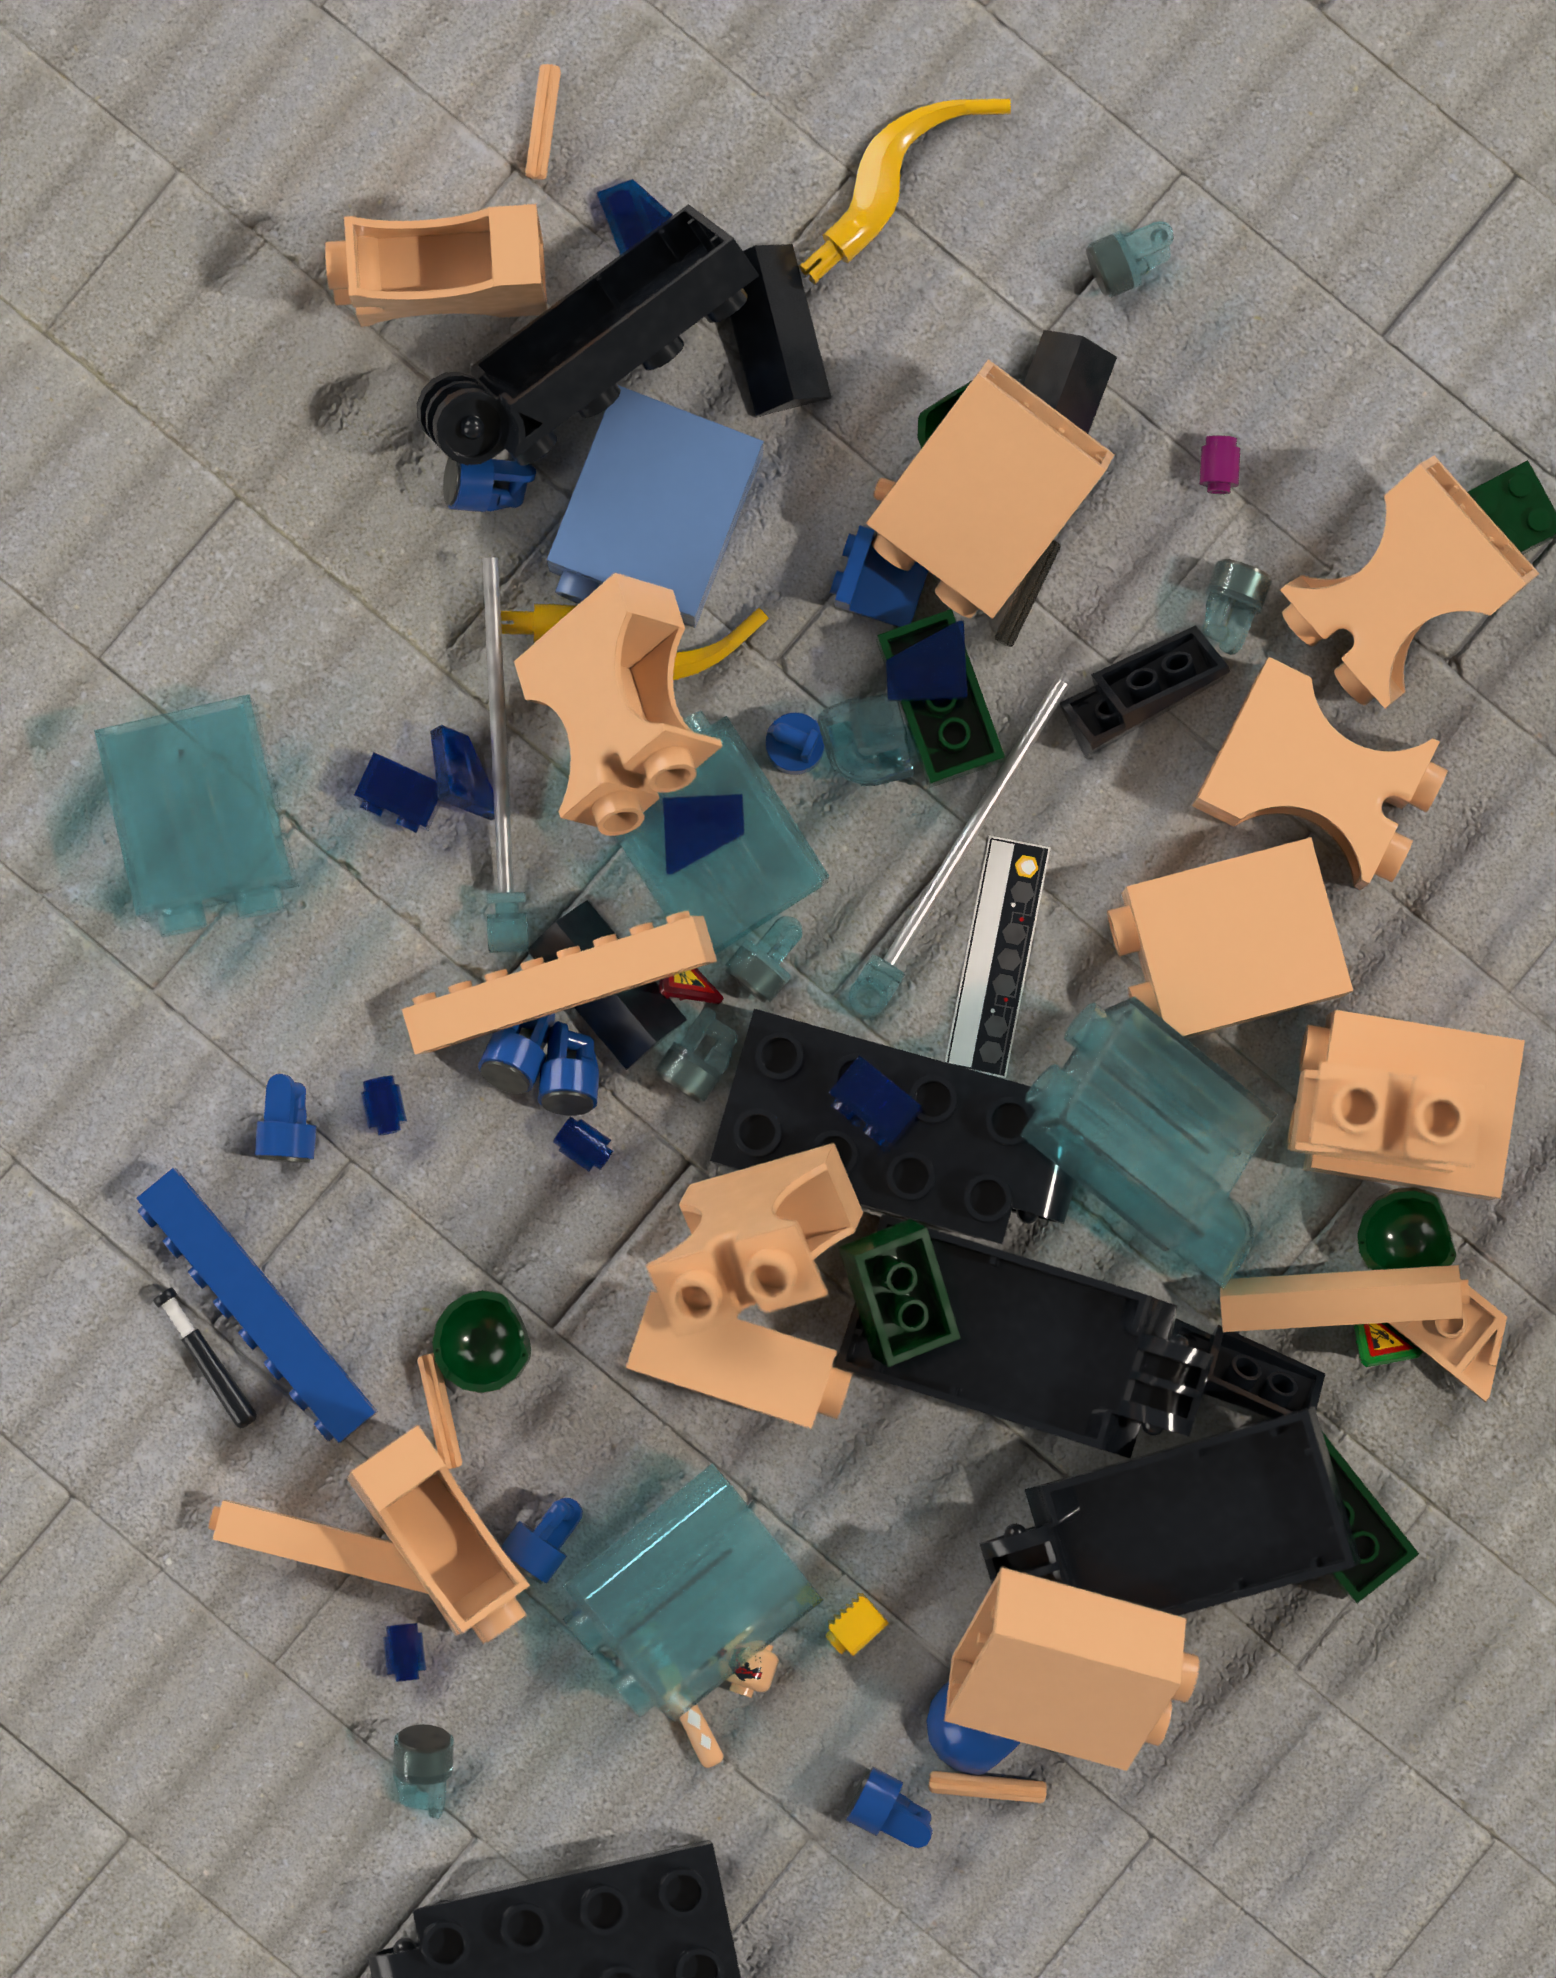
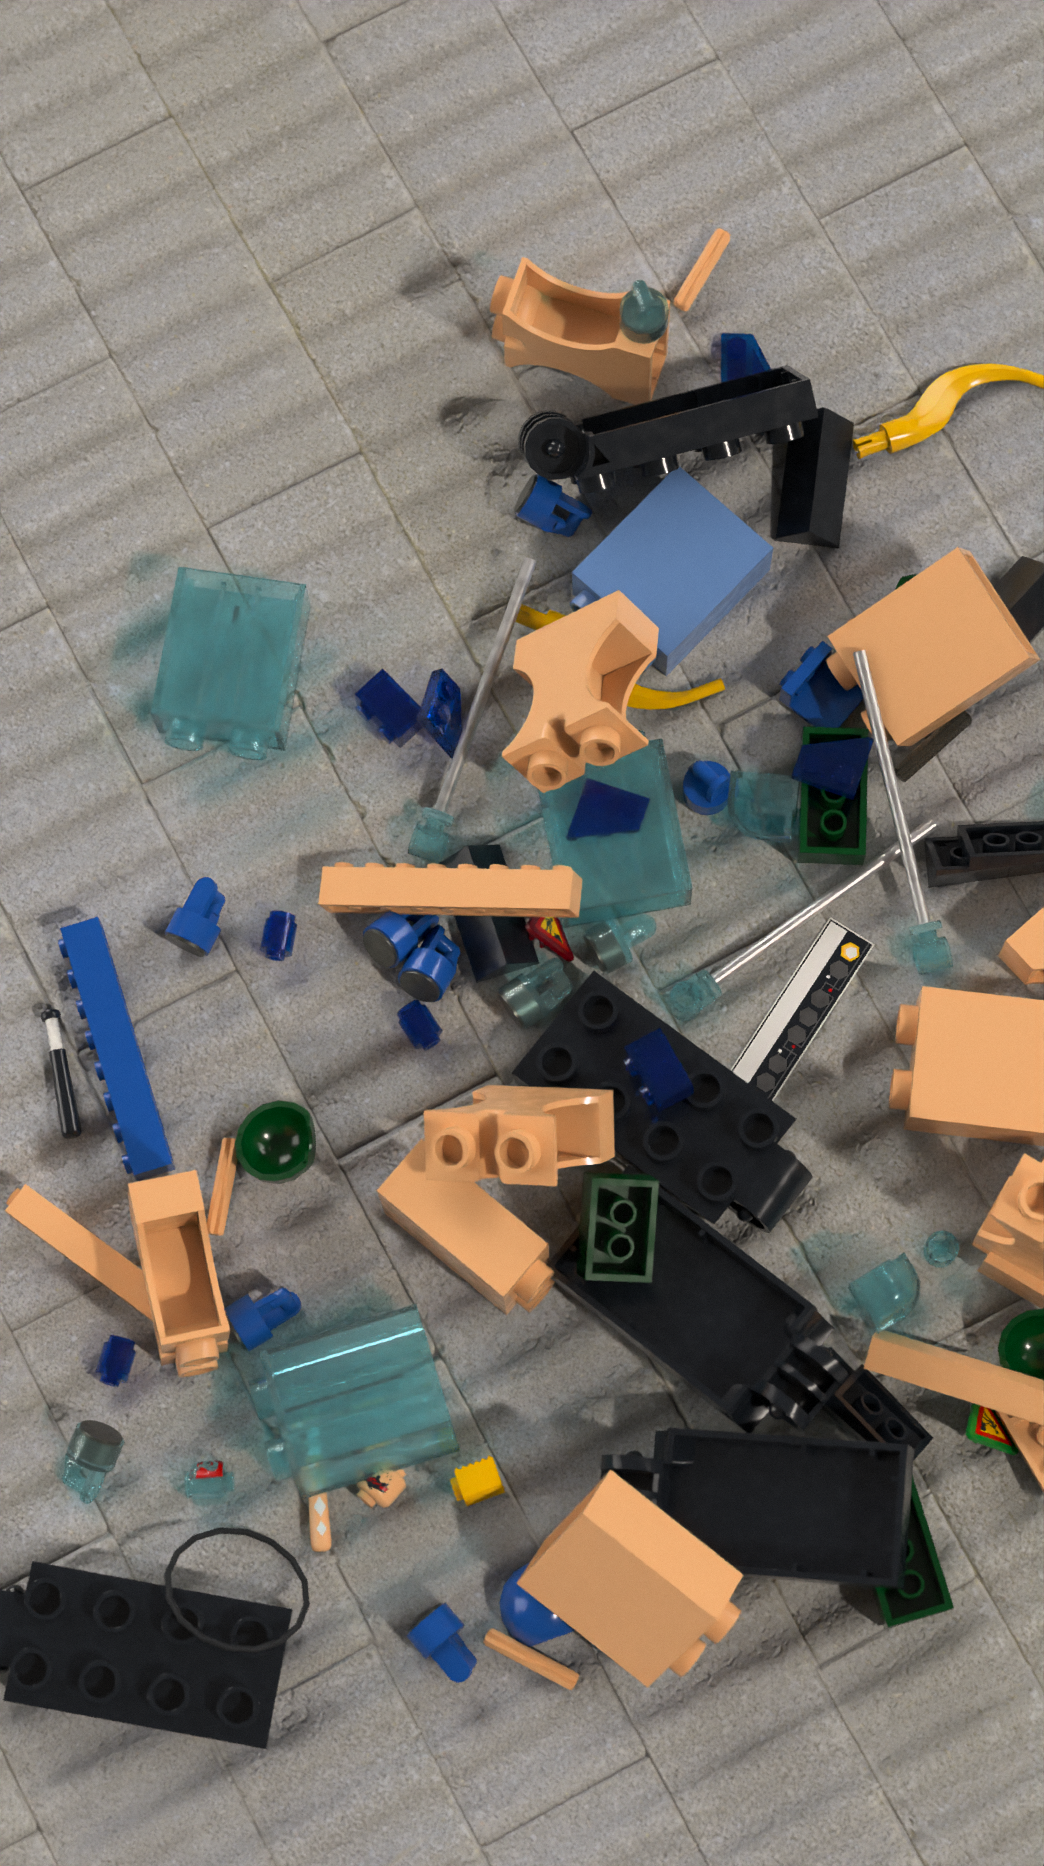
camera: 30 degrees right, 10 degrees down
(514, 237) = (643, 313): none -> clear light blue piece
(563, 1742) = (209, 1483): none -> clear light blue head
(644, 1918) = (237, 1648): none -> black piece
(1118, 833) = (931, 951): none -> flat silver piece
(1146, 1122) = (866, 1172): clear light blue brick -> none
(1255, 1165) = (937, 1254): none -> clear light blue wheel

